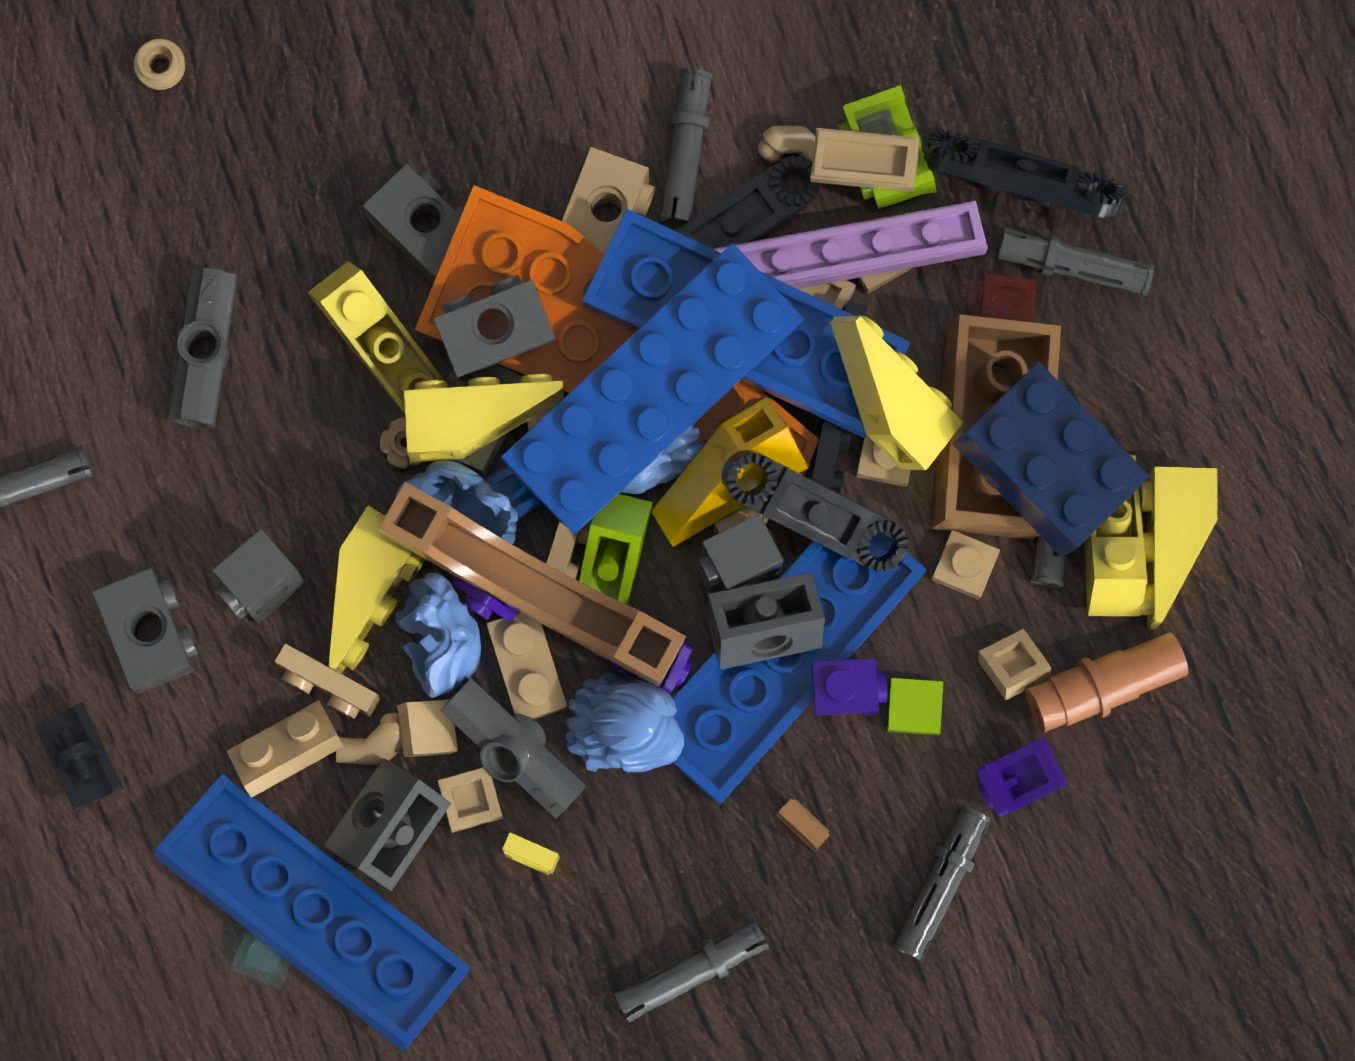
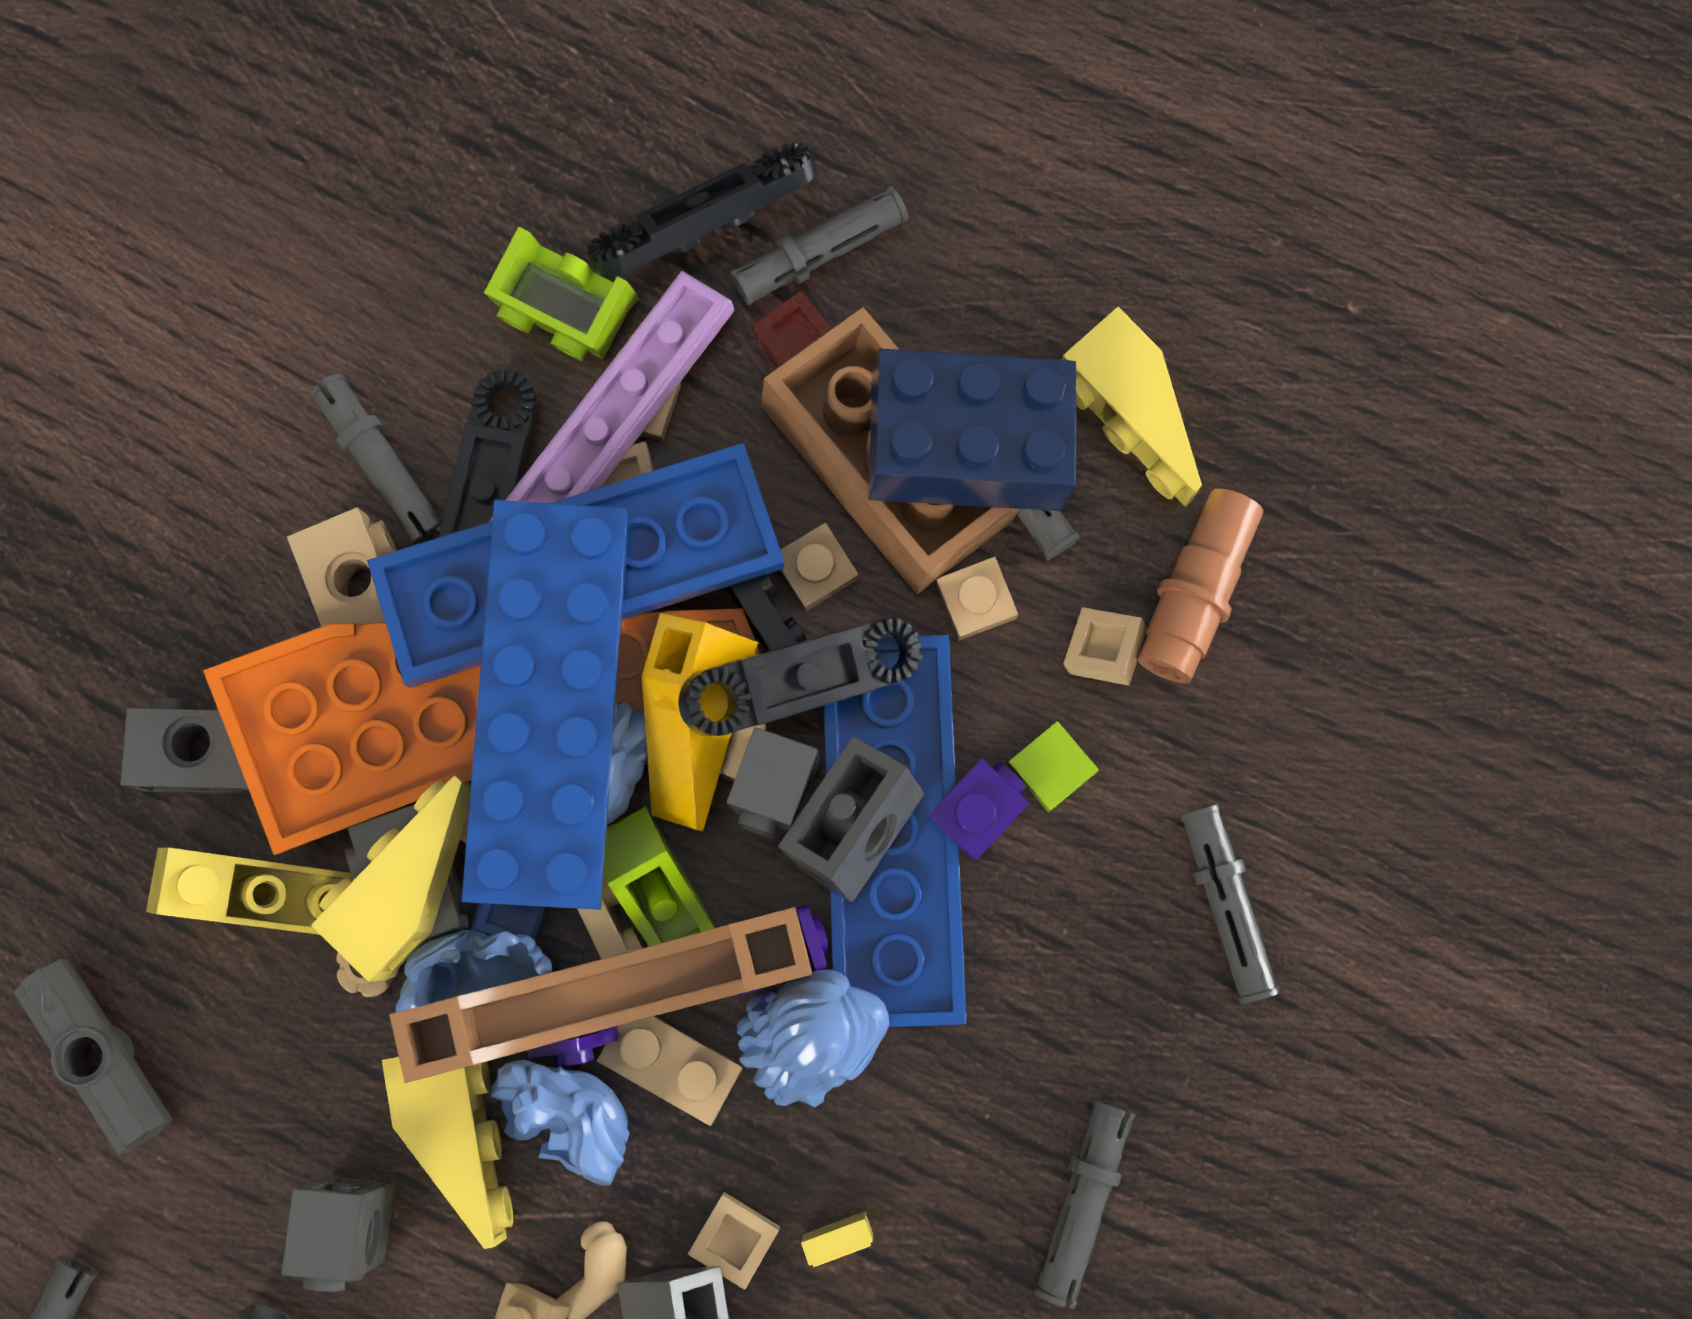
camera: 35 degrees left, 0 degrees up
(345, 693) = (470, 1270): tan plate -> none
(426, 729) = (632, 1212): tan tile -> none
(474, 352) = (337, 826): dark grey brick -> none
(513, 748) = (729, 1156): dark grey piece -> none
(786, 140) = (472, 364): tan arm -> none
(803, 824) = (1059, 969): medium nougat tile -> none
(865, 159) = (548, 320): tan tile -> none
(894, 403) = (783, 509): light yellow slope -> none
(1020, 778) = (1208, 742): dark purple bracket -> none
(1117, 563) = (1116, 476): light yellow slope -> none

